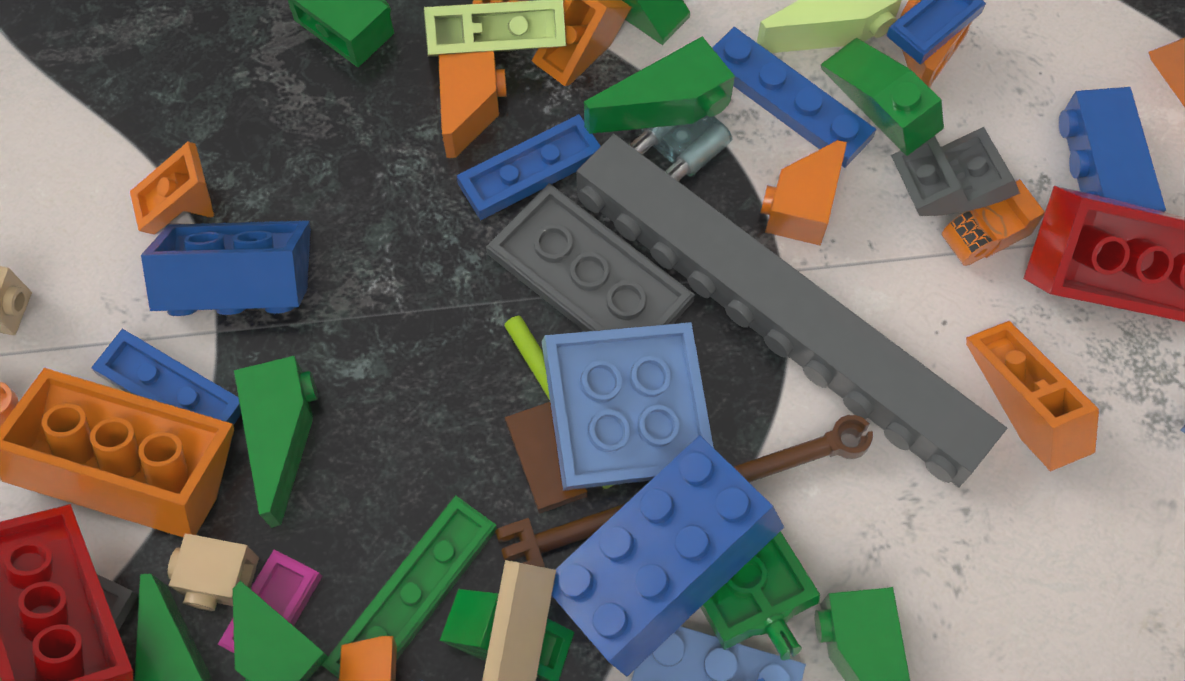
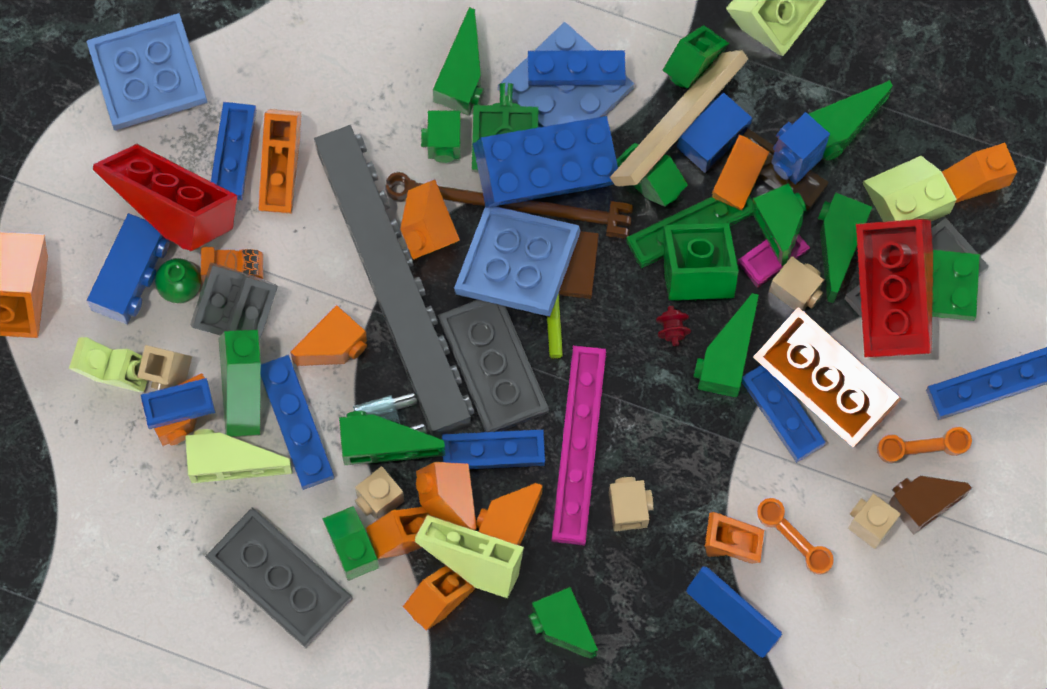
camera: 155 degrees left, 5 degrees up
(55, 230) = (771, 514): none -> orange bar
(137, 126) = (734, 612): none -> blue slope
(227, 267) = (713, 472): blue slope -> none
(324, 177) = (629, 504): none -> tan brick
(371, 534) = (699, 261): none -> green slope
(372, 430) = (673, 325): none -> dark red wheel
(429, 234) = (579, 445): none -> dark pink tile
(555, 81) = (447, 493): none -> orange slope
(635, 45) = (378, 494): none -> tan brick
(779, 387) = (426, 221): none -> orange slope
(835, 538) = (442, 136): none -> green brick
(982, 63) = (163, 367): none -> tan brick
(1034, 58) = (107, 365): none -> yellowish green slope
(1042, 174) = (177, 280): none -> green brick
(1100, 375) = (233, 147): none -> blue plate

